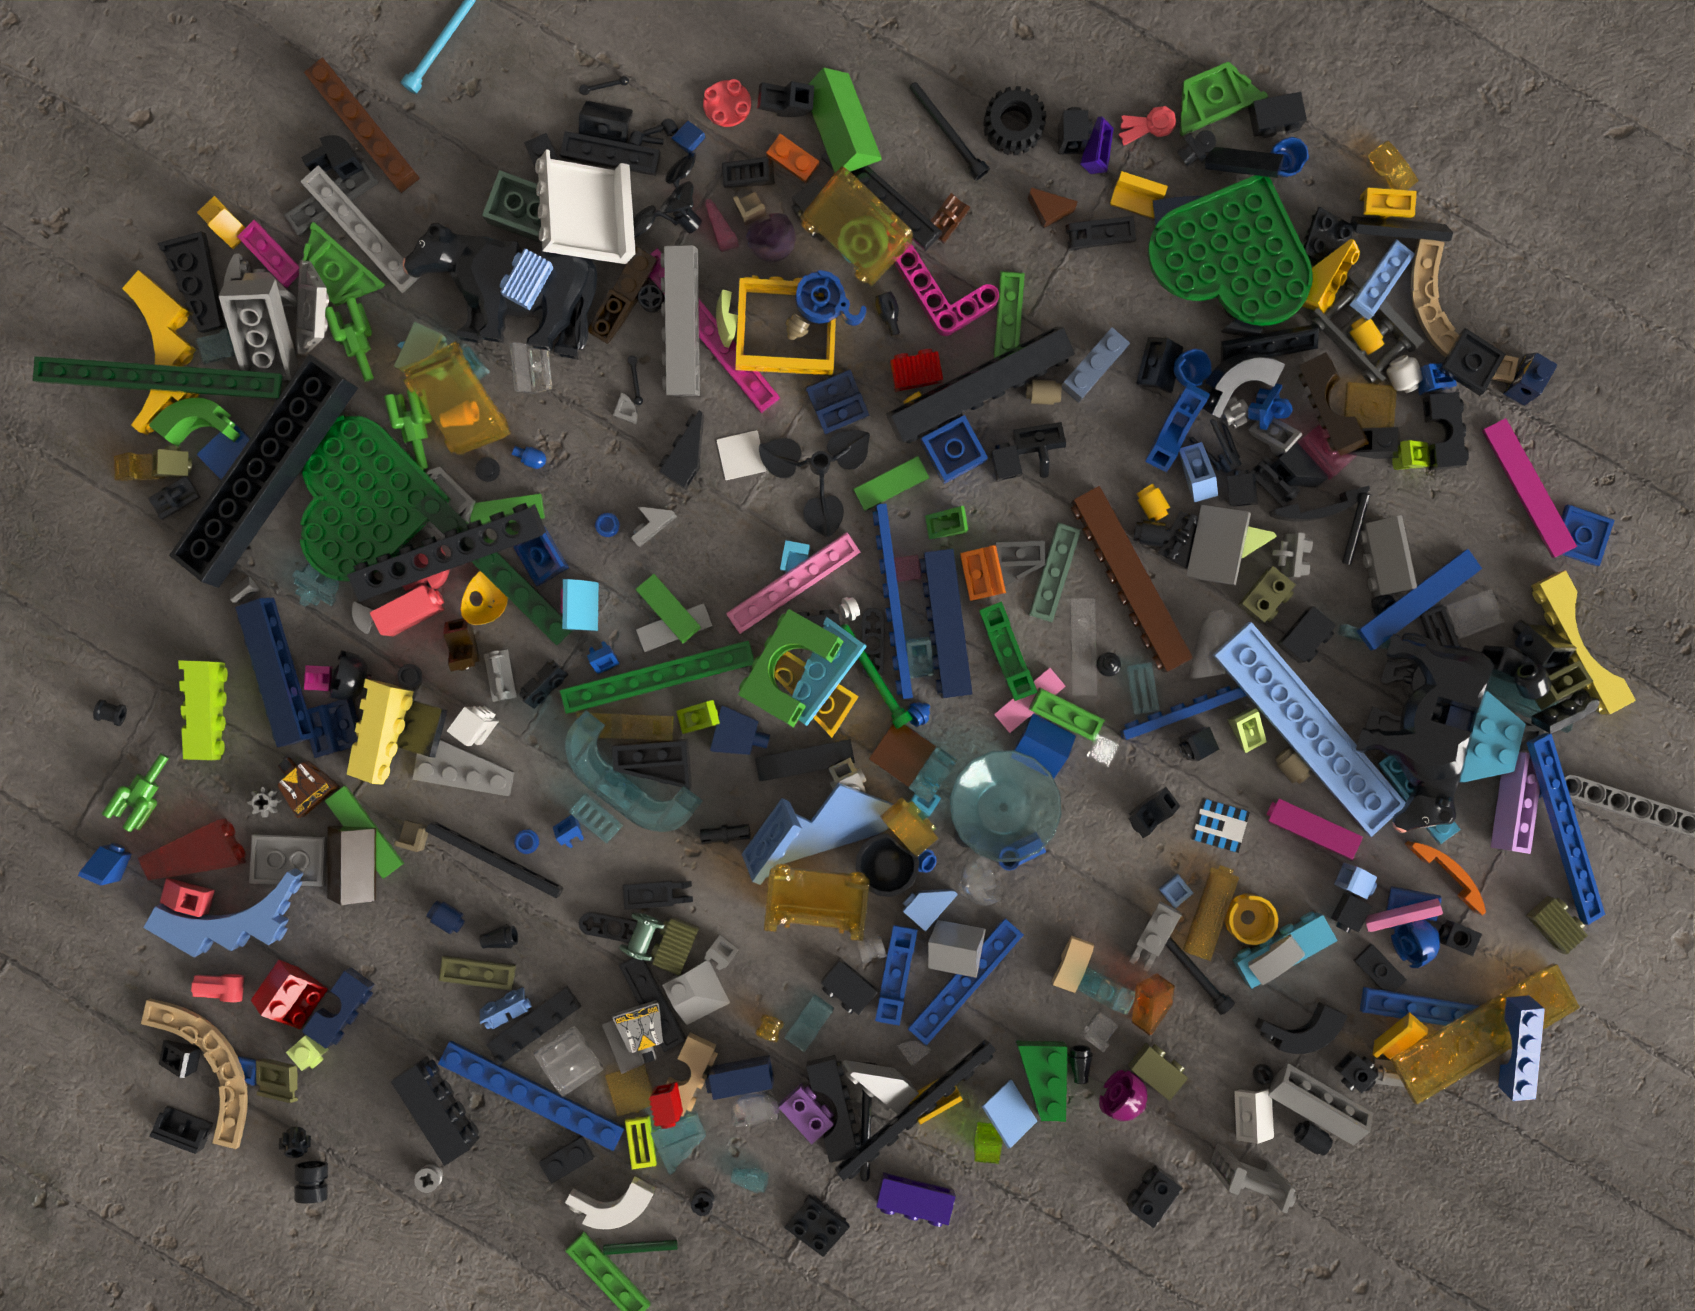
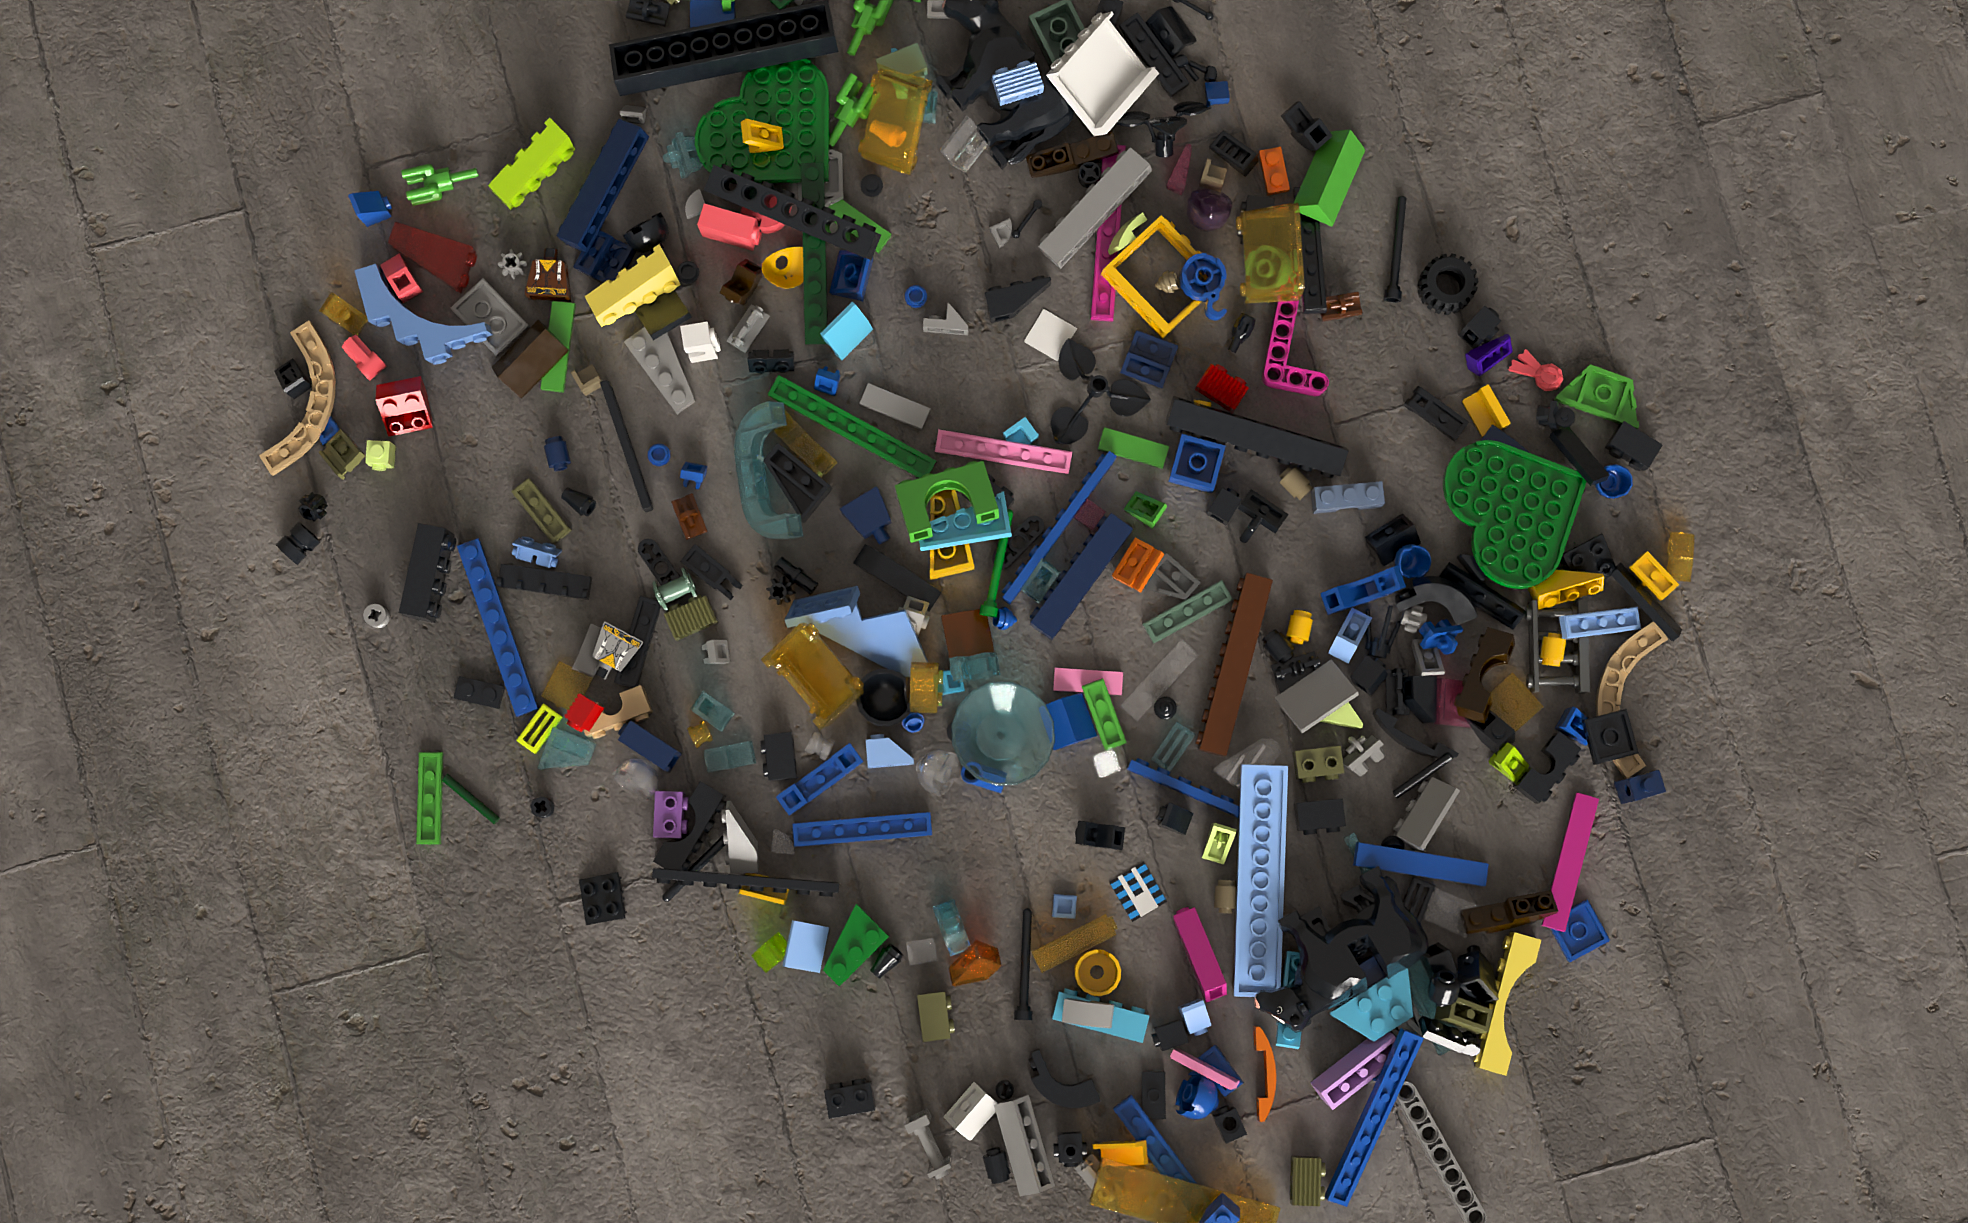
camera: 40 degrees right, 5 degrees down
(109, 712) = (469, 110): black bush -> none
(169, 969) = (343, 314): none -> clear yellow slope
(181, 1130) = (247, 427): black hinge -> none
(317, 678) = (626, 216): dark pink tile -> none
(352, 991) = (448, 445): dark blue arch -> none
(363, 514) = (761, 136): none -> yellow slope
(530, 457) = (908, 203): blue cylinder -> none
(568, 1061) = (544, 627): clear slope -> none
(575, 811) = (711, 474): clear light blue slope -> none
(597, 868) = (689, 516): none -> reddish brown hips
(615, 1213) = (492, 763): white arch -> none
(668, 608) = (903, 389): bright green tile -> none
(696, 992) = (674, 663): light grey slope -> none
(698, 717) = (853, 480): lime slope -> none
(727, 103) = (1264, 94): coral dish -> none
(727, 864) = (785, 594): none -> black gear
(750, 1179) = (590, 826): clear light blue cone -> none
(762, 1001) = (712, 711): none -> clear light blue slope
(849, 608) = (1024, 504): white plate -> none
(915, 1199) = (685, 944): dark purple brick -> none
(955, 948) = (876, 799): light grey slope -> none
(1007, 651) = (1104, 633): green slope -> none
(1009, 312) = (1323, 408): bright green tile -> none
(1050, 207) = (1418, 364): reddish brown slope -> none
(1074, 964) = (946, 887): tan slope -> none
(1124, 1097) = (895, 1012): magenta cylinder -> none
(1156, 933) = (1022, 921): light grey hinge -> none
(1404, 373) = (1556, 702): white head -> none
(1521, 572) = (1509, 914): none -> dark brown slope

